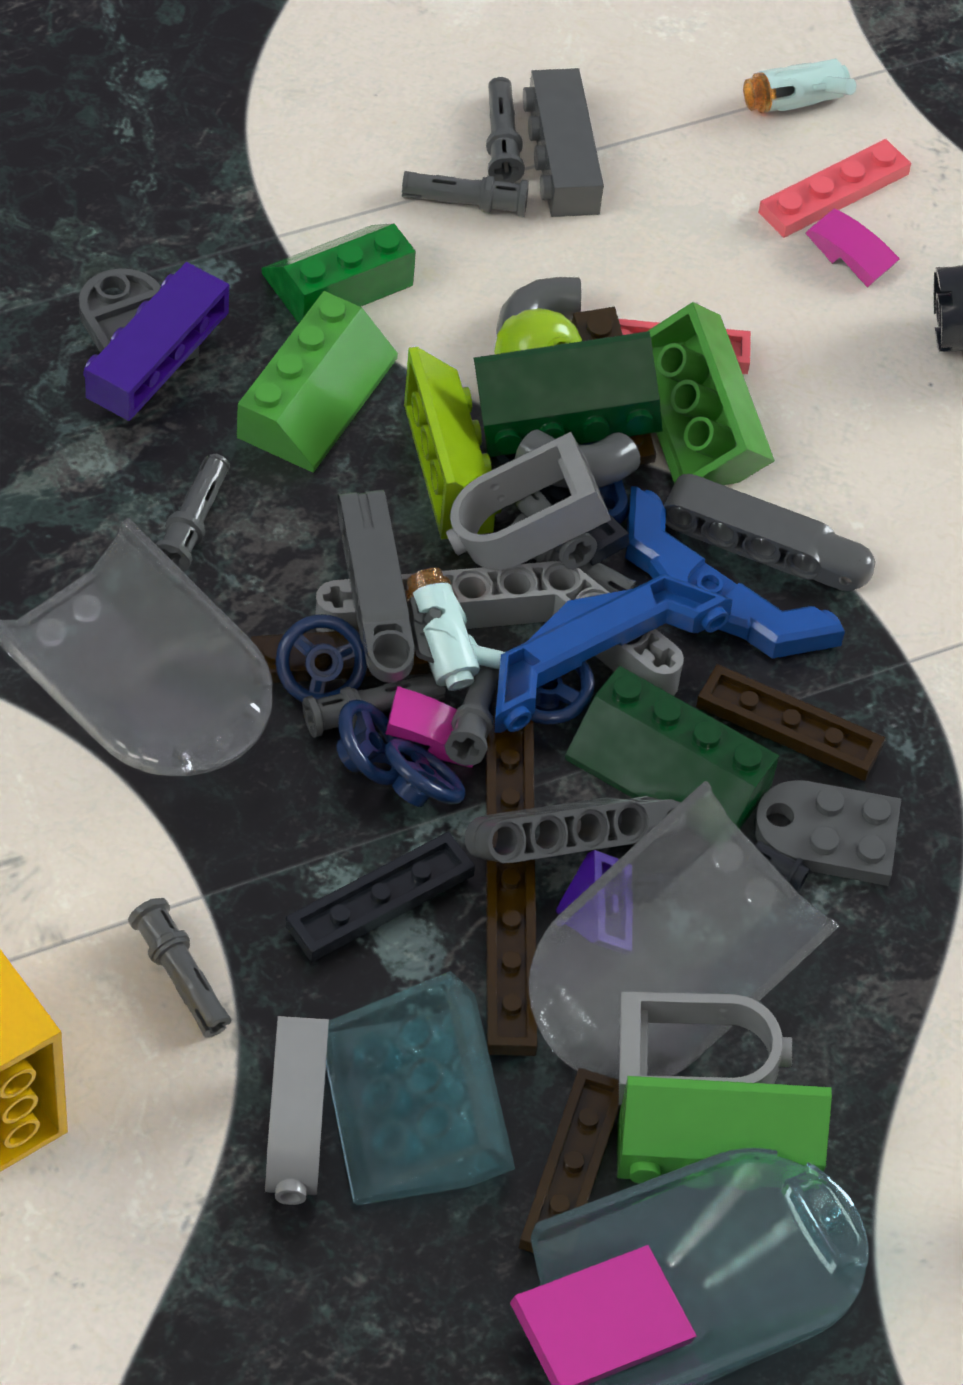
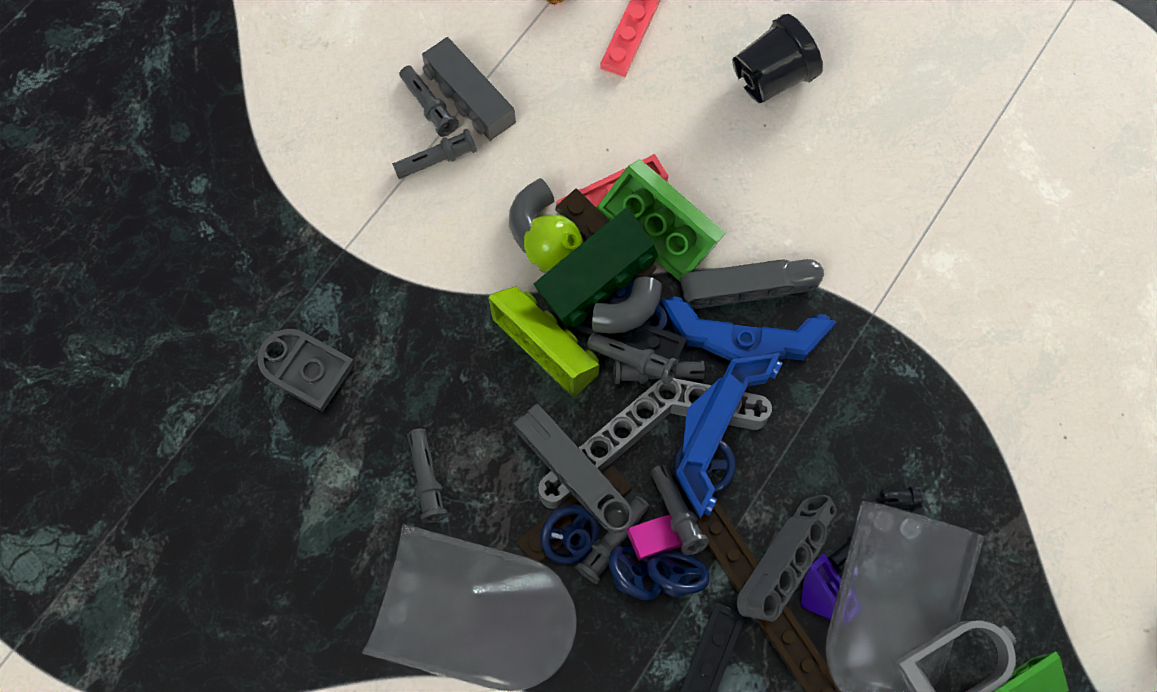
camera: 25 degrees left, 15 degrees up
(156, 341) = (329, 377): dark purple brick -> none
(315, 383) = (438, 341): bright green slope -> none
(352, 267) = (400, 254): green slope -> none
(441, 631) = (630, 476): light aqua piece -> none
(515, 481) = (662, 340): light grey window -> none
(666, 748) = (801, 467): dark green slope -> none
(790, 722) = (845, 399): dark brown plate -> none
(832, 829) = (911, 452): dark grey plate -> none
(856, 245) = (668, 60): dark pink slope -> none

